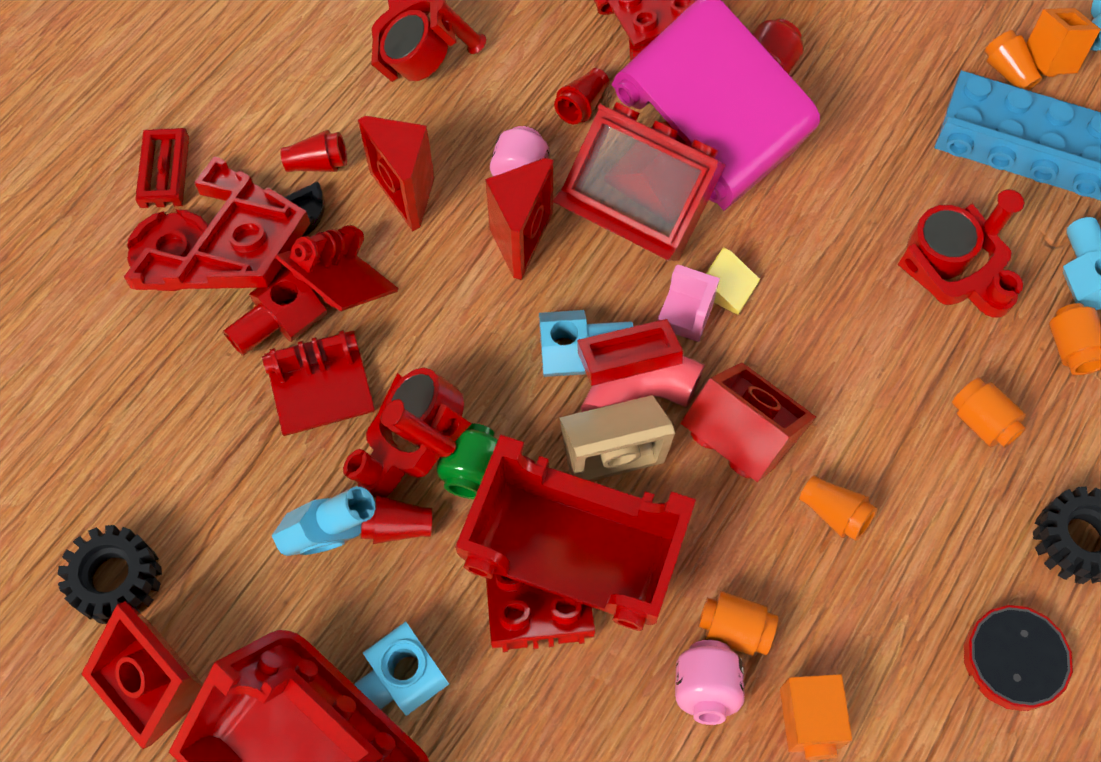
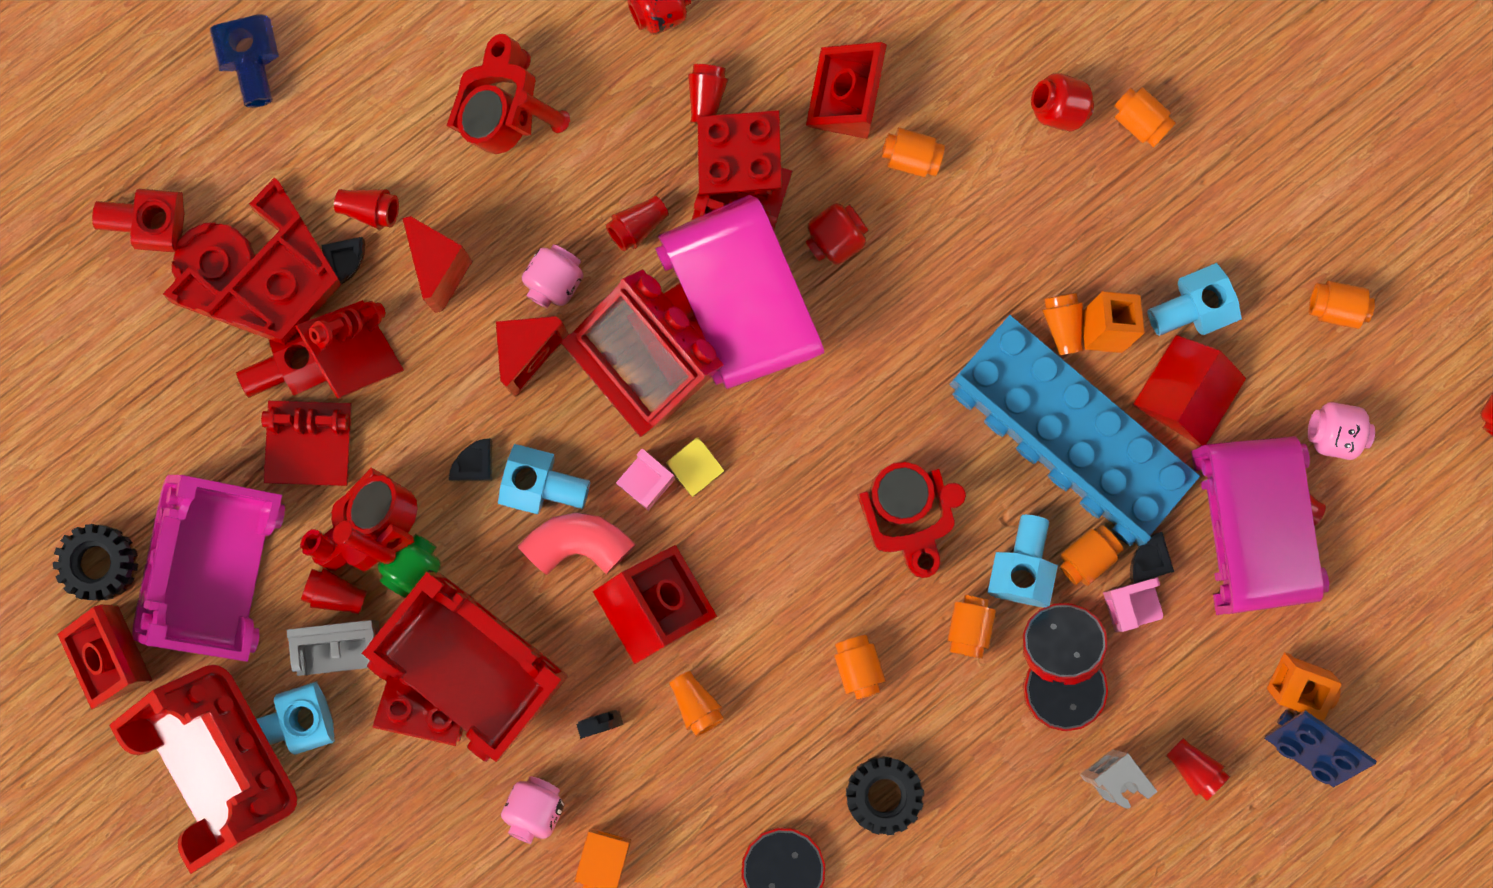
camera: 15 degrees right, 20 degrees up
(97, 226) = (138, 216): none -> red piece
(157, 63) = (250, 63): none -> clear blue piece
(161, 194) = (241, 173): red tile -> none
(224, 504) = (204, 567): none -> dark pink windscreen
(324, 523) = (269, 585): medium azure piece -> none
(415, 577) = (330, 647): none -> light grey hinge
(502, 350) = (473, 463): none -> black tile
(616, 438) = (529, 588): tan slope -> none
(629, 352) = (569, 518): red tile -> none
(738, 623) = (573, 772): orange brick -> none
(740, 564) = (599, 723): none -> black tile

